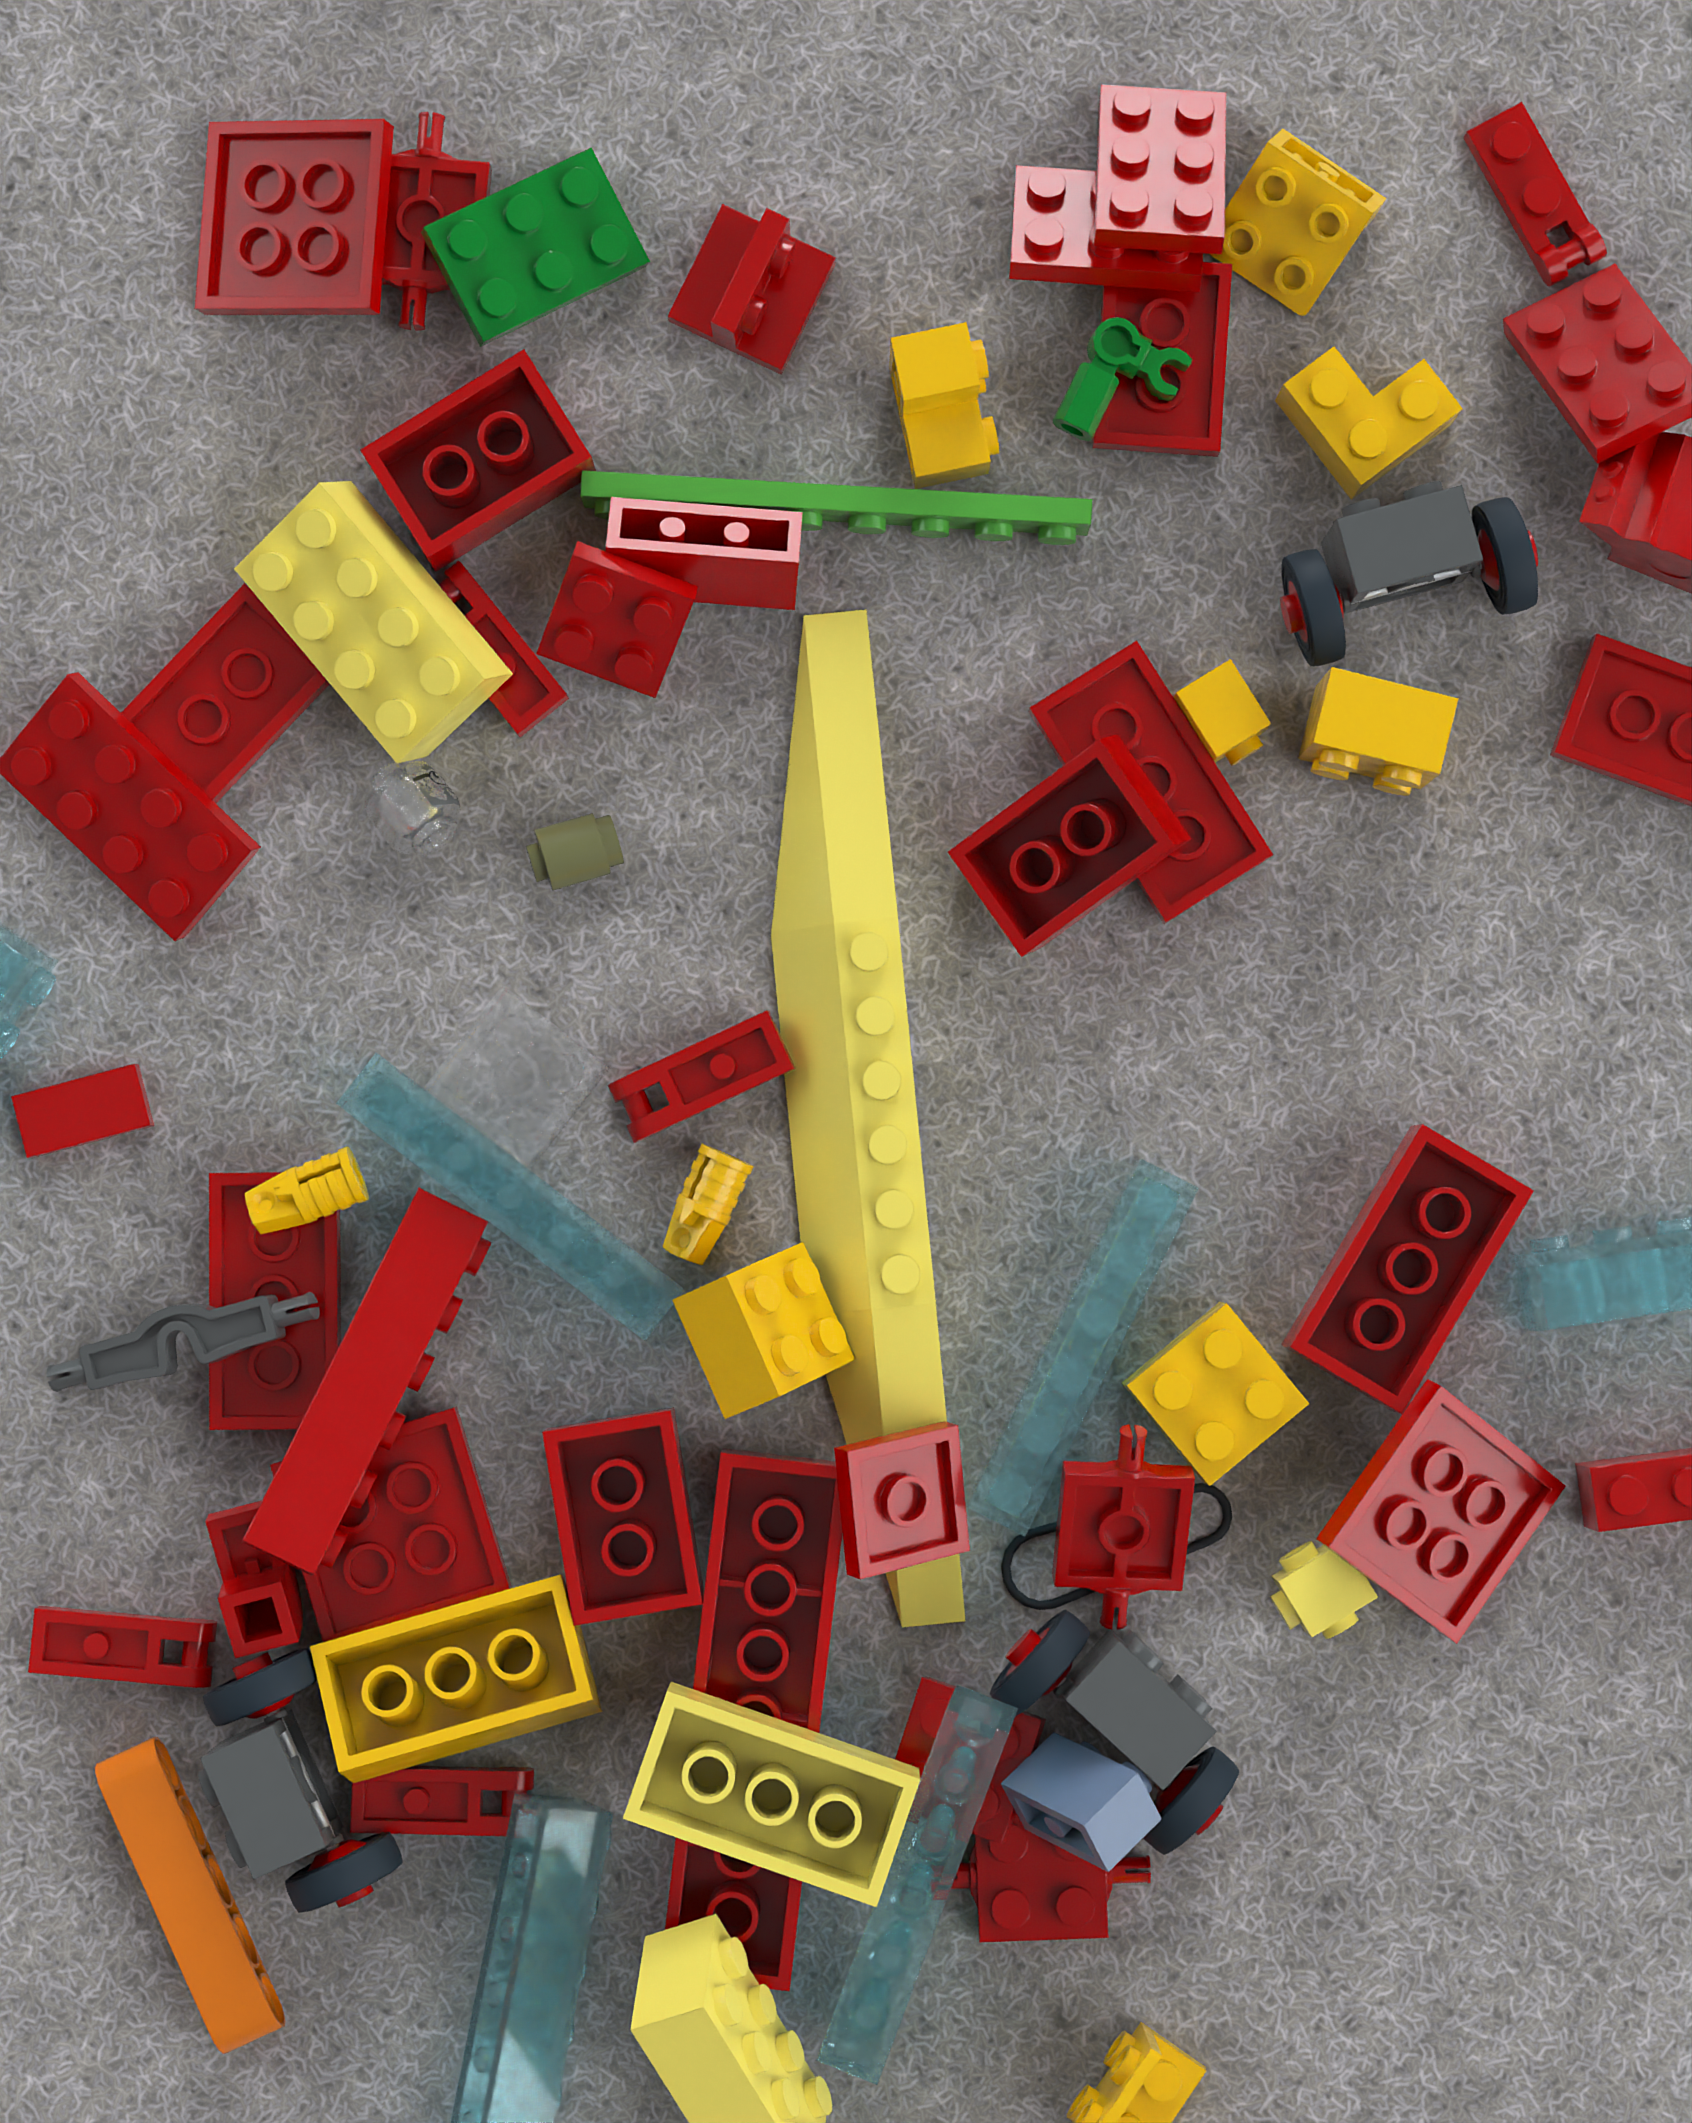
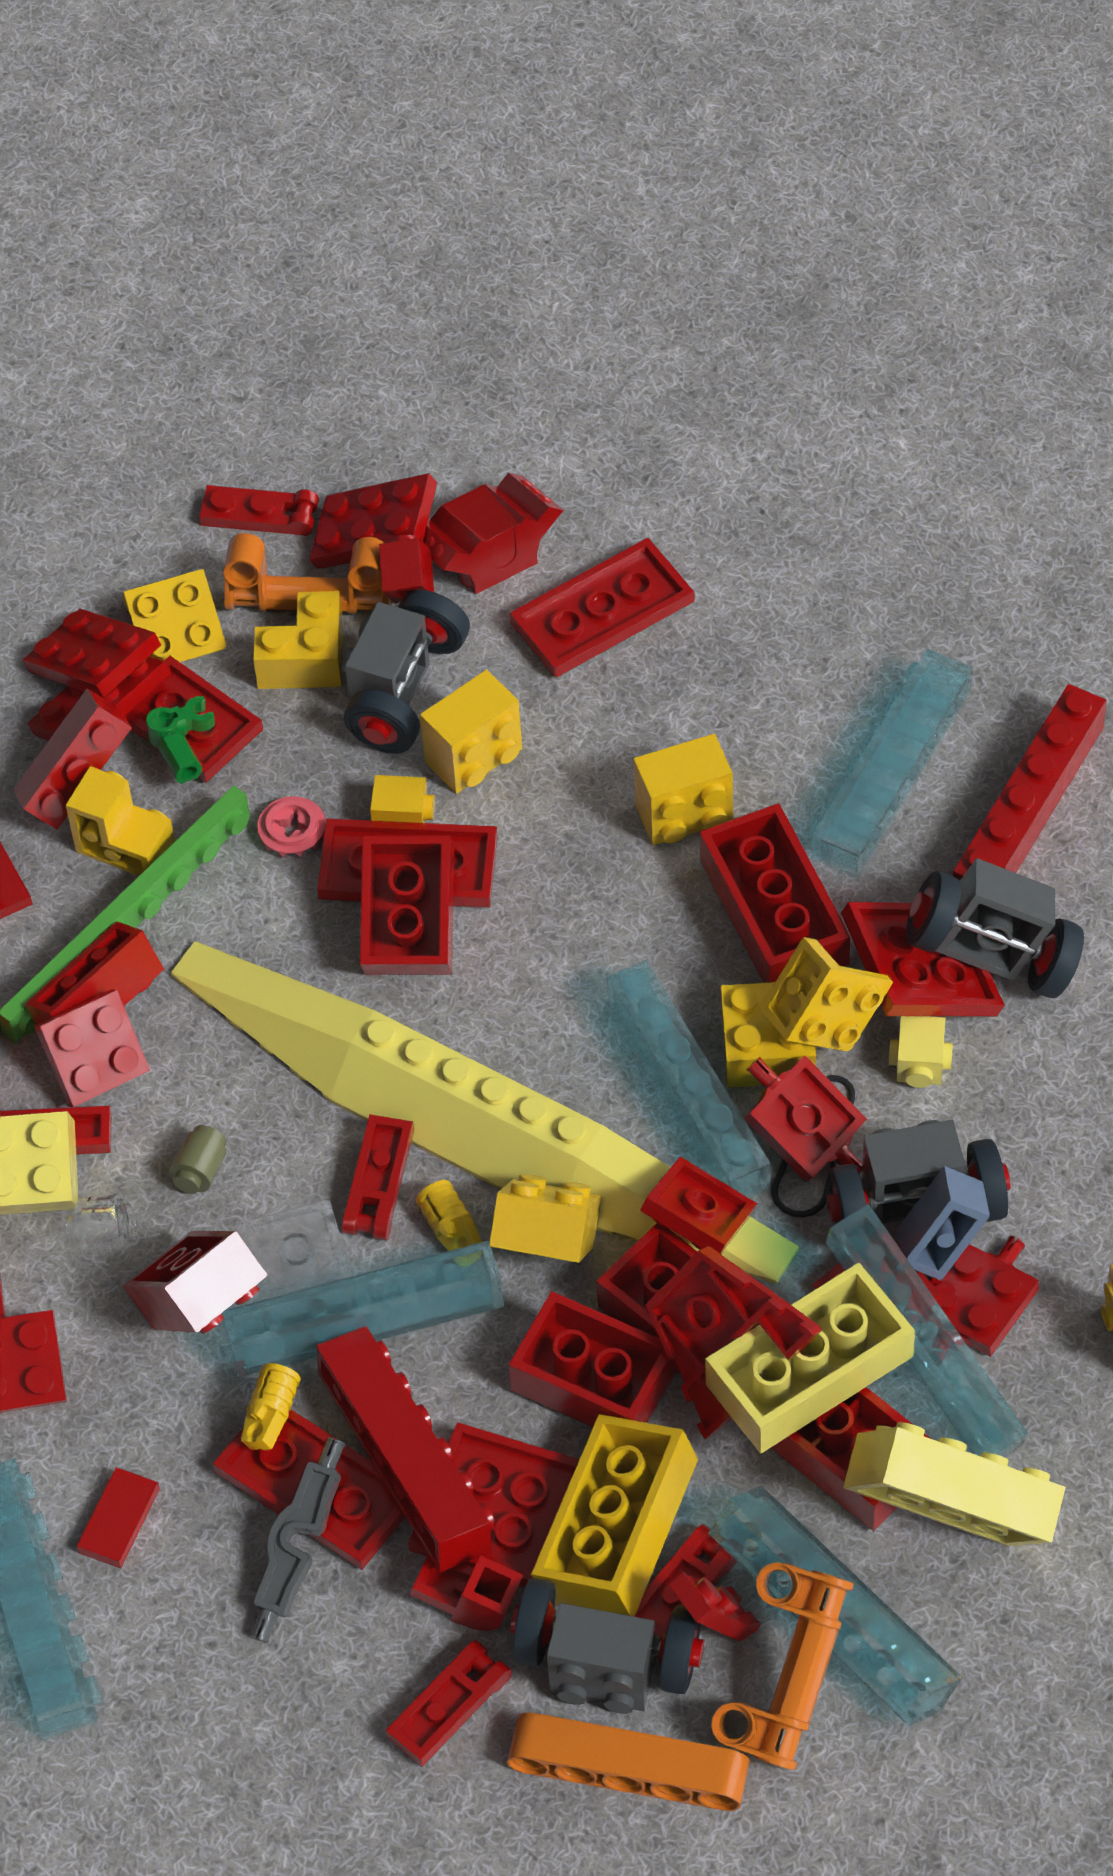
camera: 50 degrees left, 30 degrees down
(323, 2014) = (801, 1671): none -> orange piece
(384, 996) = (196, 1282): none -> brick
(411, 1879) = (715, 1607): none -> red plate
(740, 1655) = (710, 1307): none -> red wing
(977, 279) = (82, 740): none -> red brick
(1115, 574) = (280, 815): none -> coral gear
(1263, 1451) = (822, 1001): none -> yellow bracket
(1407, 280) = (250, 585): none -> orange piece
(1478, 1053) = (683, 789): none -> yellow brick
(1547, 474) = (405, 566): none -> red brick
(1549, 1581) = (997, 925): none -> brick

